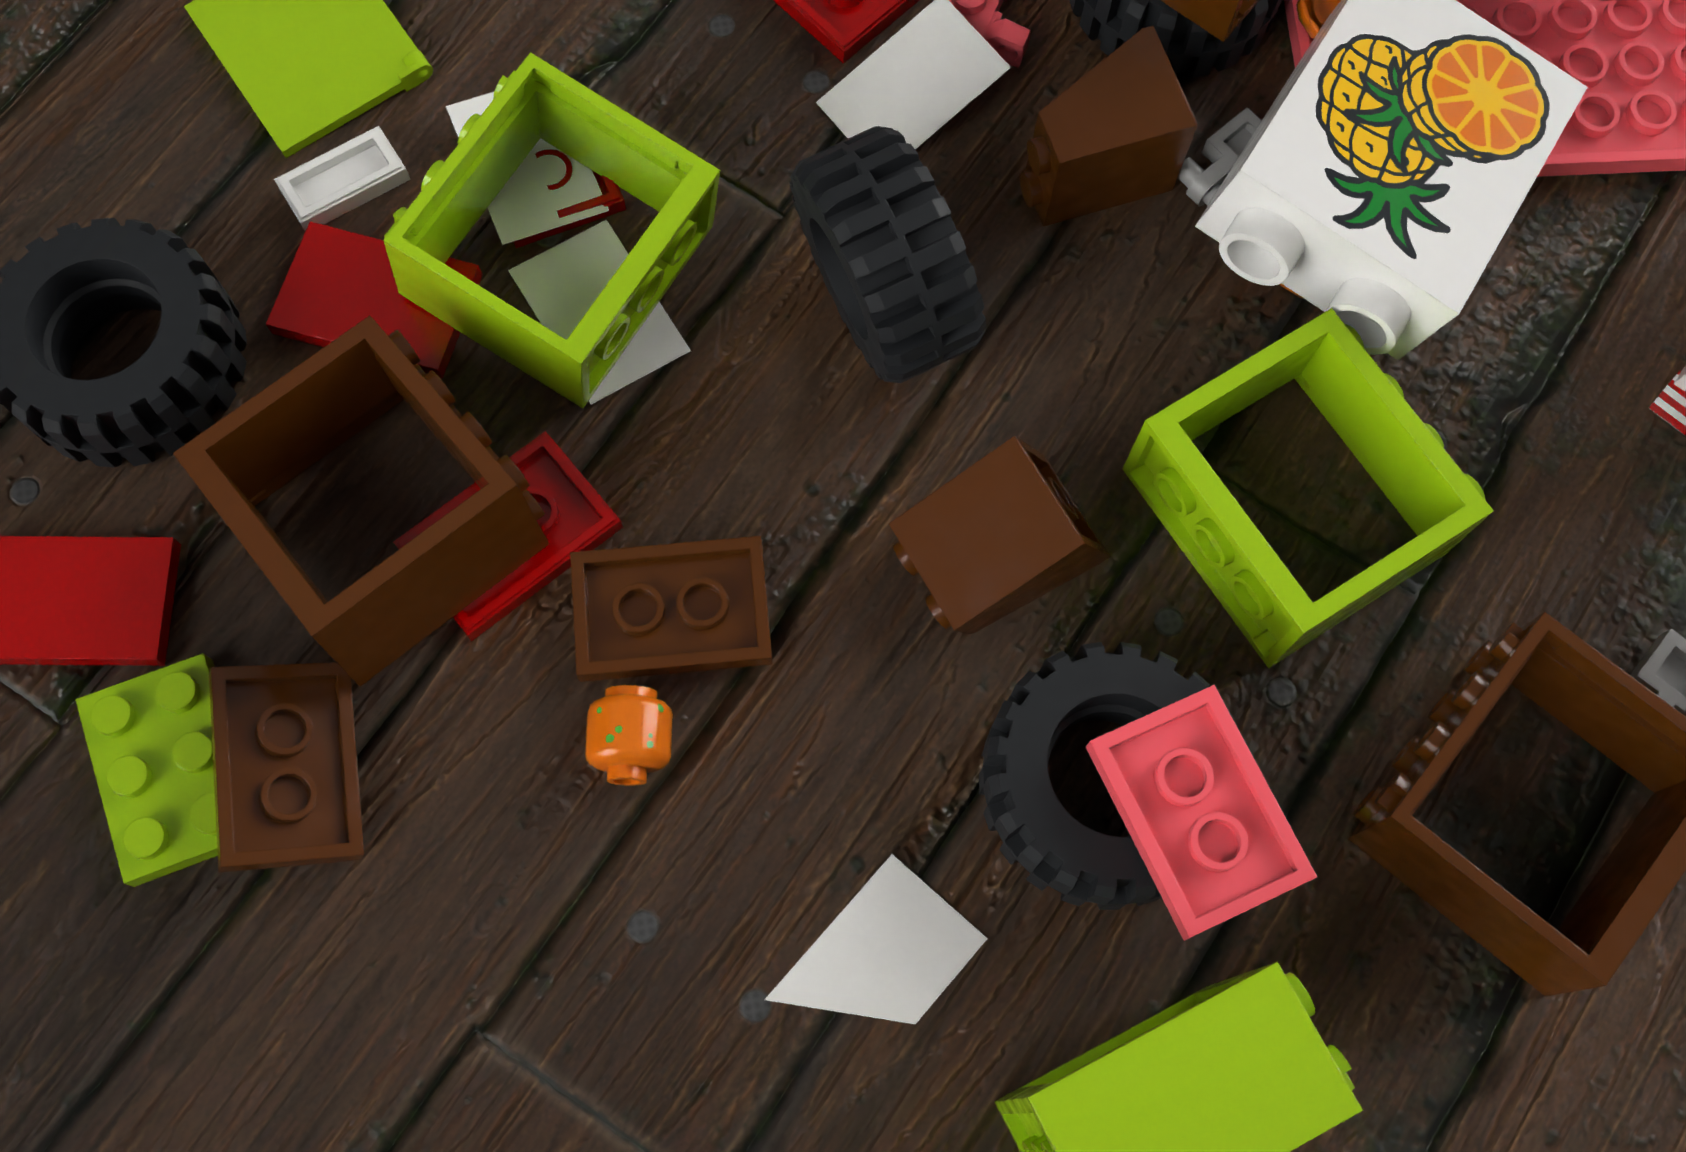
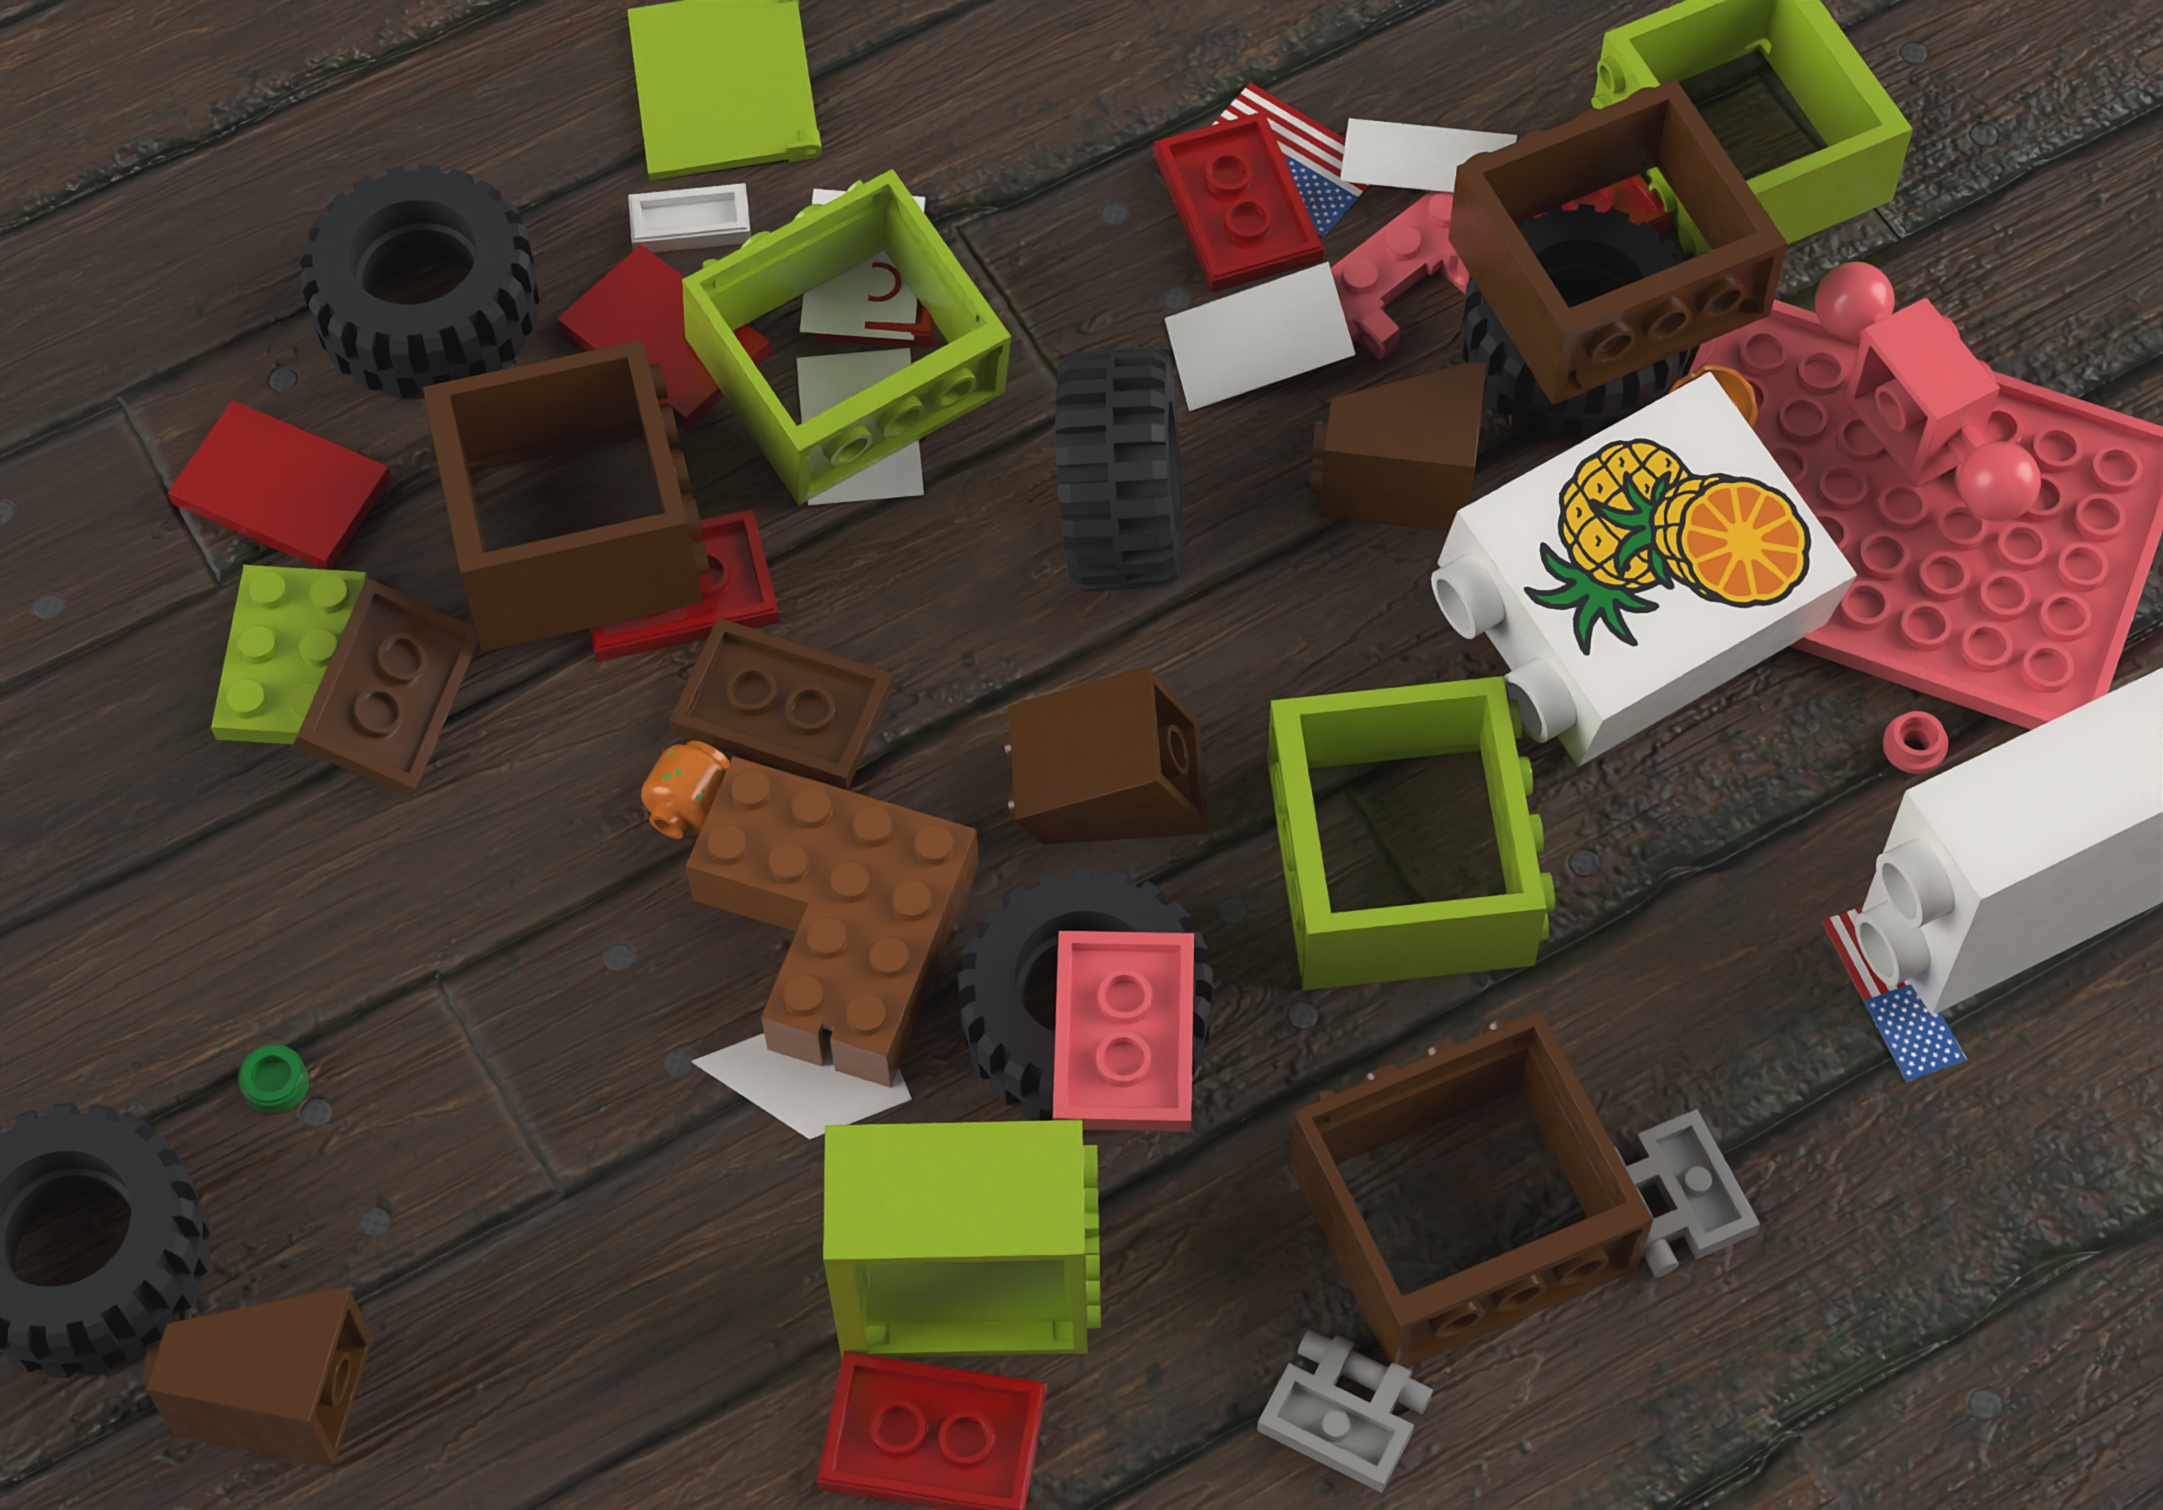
camera: 30 degrees right, 10 degrees down
(856, 759) = (859, 886): none -> dark orange piece
(1539, 1080) = (1336, 1425): none -> light grey plate
(1648, 209) = (1915, 727): none -> coral plate

